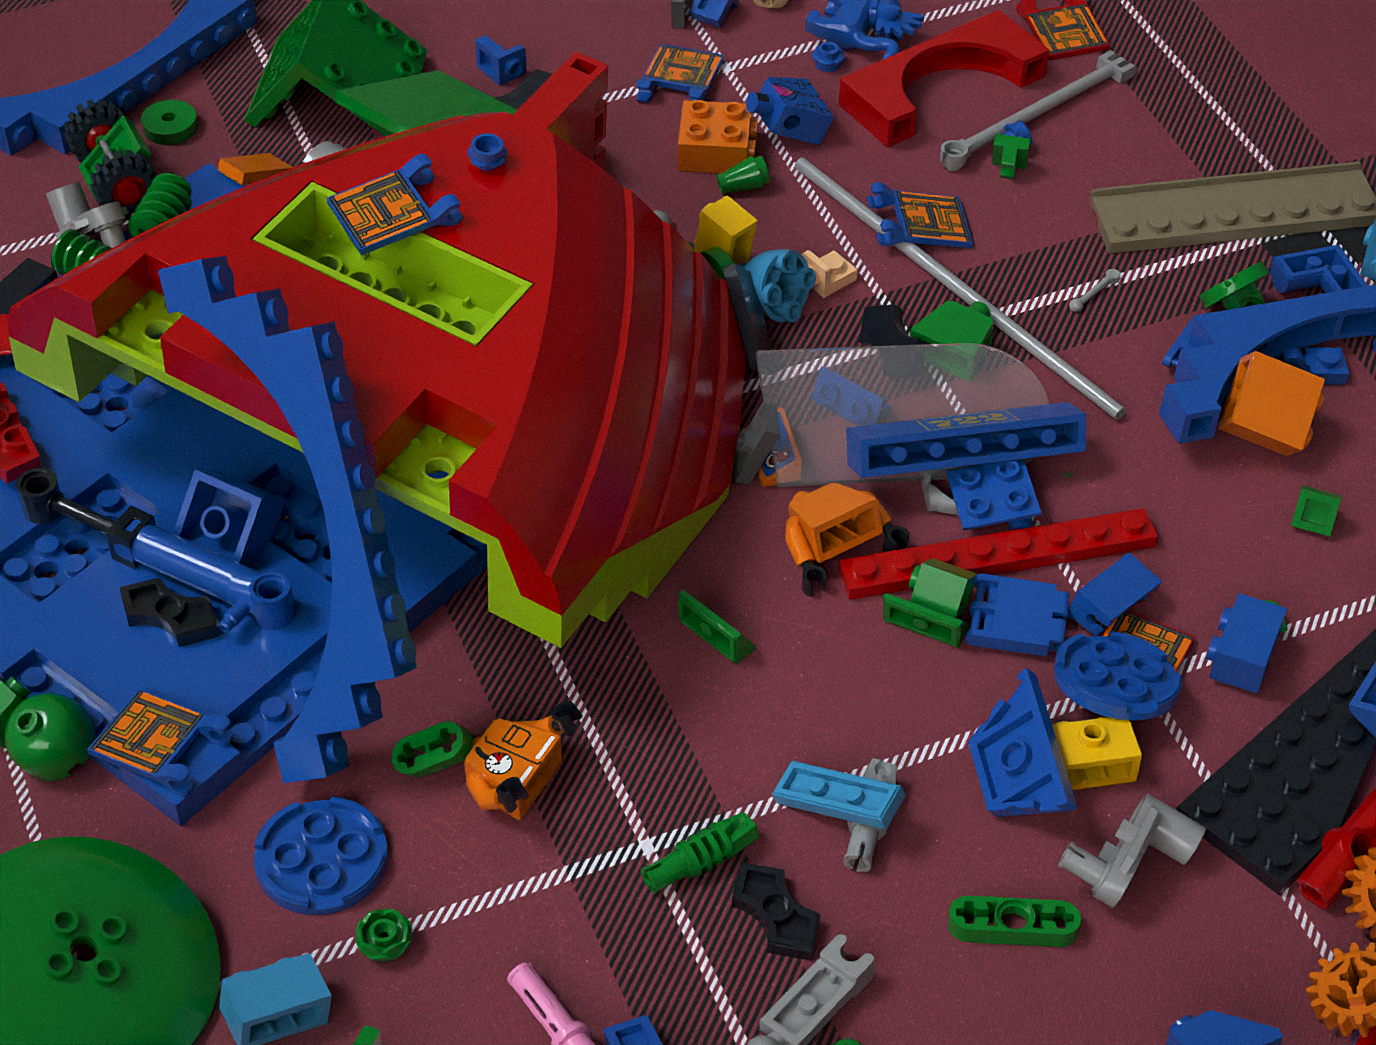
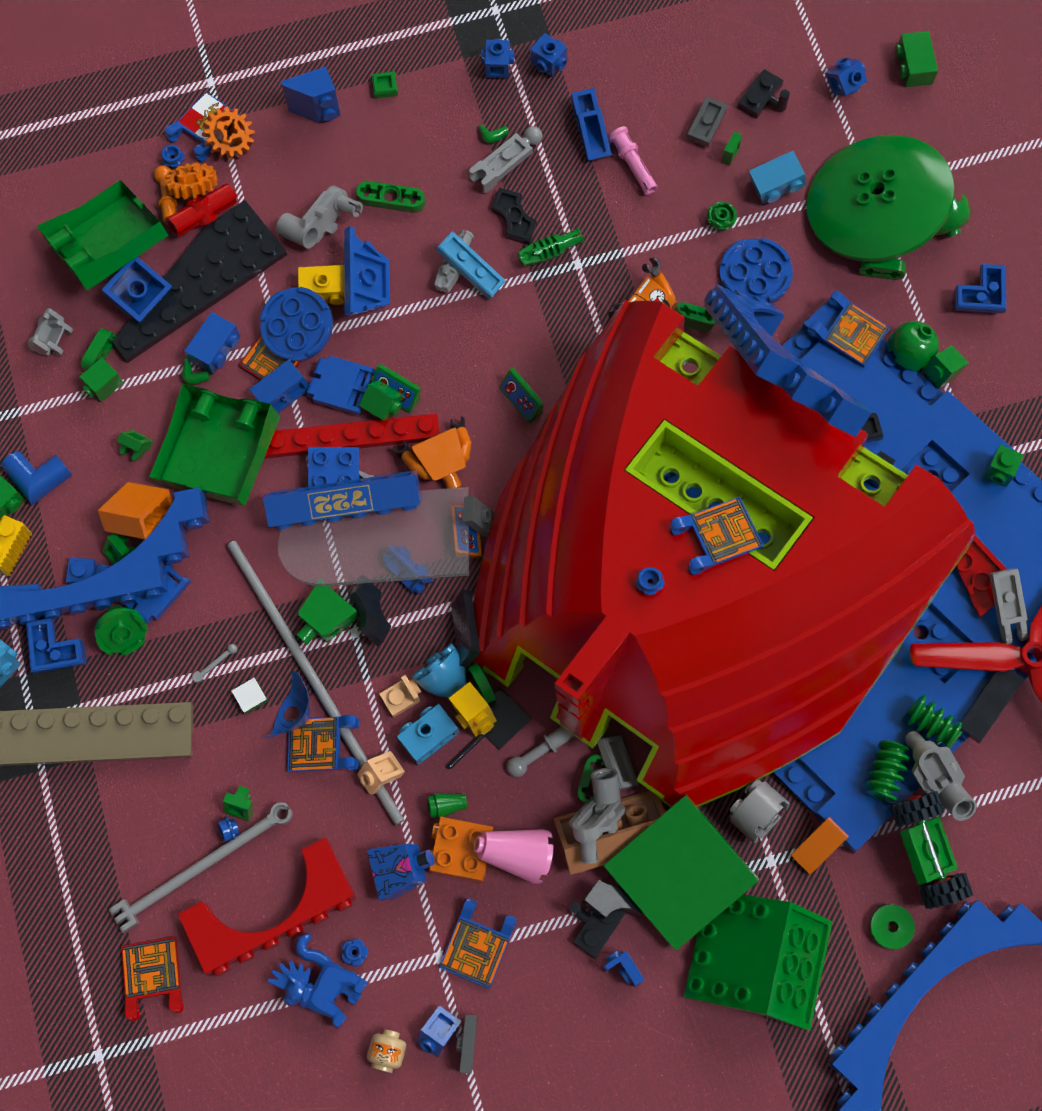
camera: 170 degrees left, 25 degrees up
(645, 116) = (517, 852): none -> bright pink cone
(787, 225) = (427, 733): none -> dark azure brick
(834, 195) = (380, 771): none -> light nougat bracket
(973, 221) = (297, 698): none -> blue piece
(1034, 259) = (249, 696): none -> white tile
(1188, 505) = (215, 444): none -> green piece

